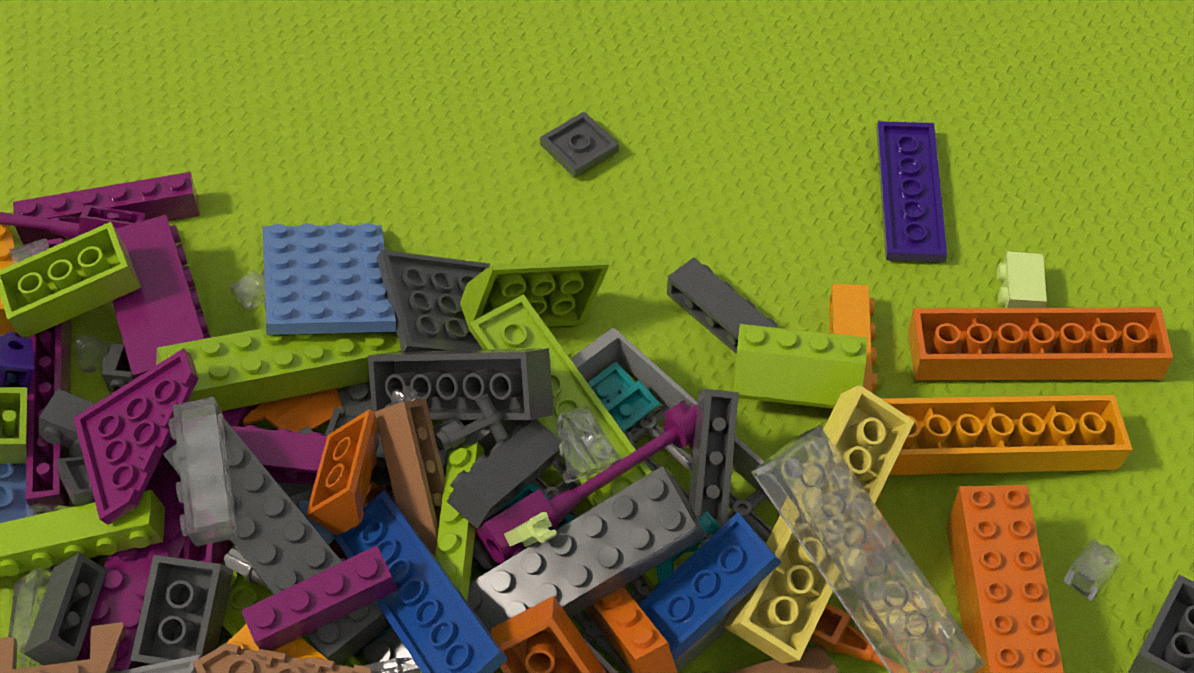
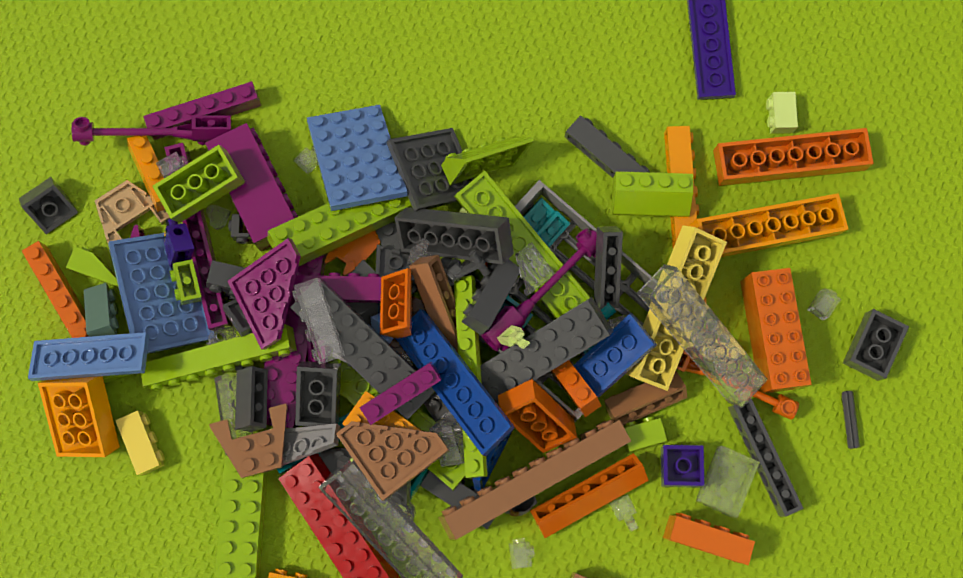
camera: 10 degrees left, 25 degrees up
(579, 144) = (497, 28): dark grey plate -> none

